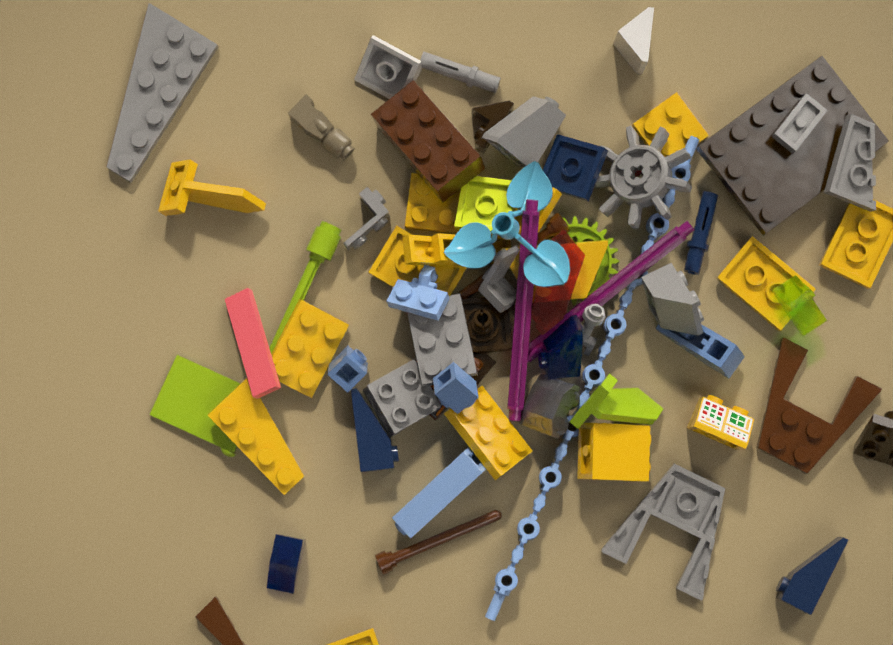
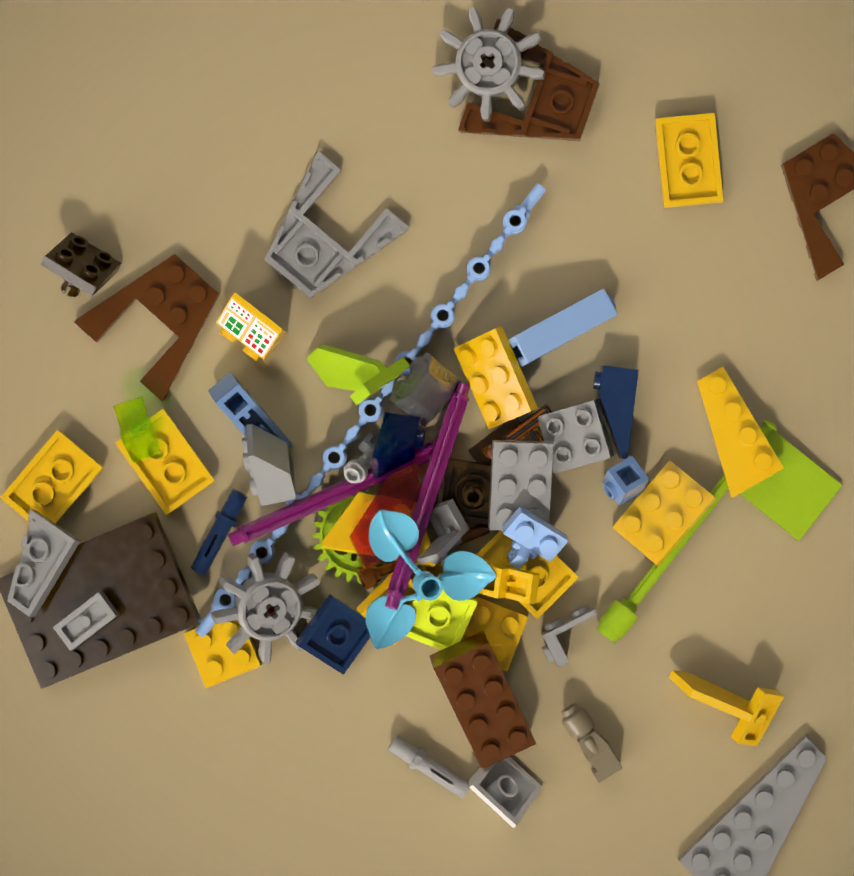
camera: 170 degrees left, 5 degrees up
(252, 343) = (718, 532): coral tile -> none
(285, 563) = (738, 297): clear blue slope -> none
(389, 560) = (630, 272): reddish brown piece -> none
(455, 388) = (520, 430): medium blue brick -> none
(491, 115) = (404, 710): dark brown slope -> none
(526, 130) = (375, 685): light grey slope -> none
(614, 452) = (370, 324): yellow panel -> none
(634, 40) = (236, 753): white slope -> none
(808, 580) = (203, 144): dark blue slope -> none

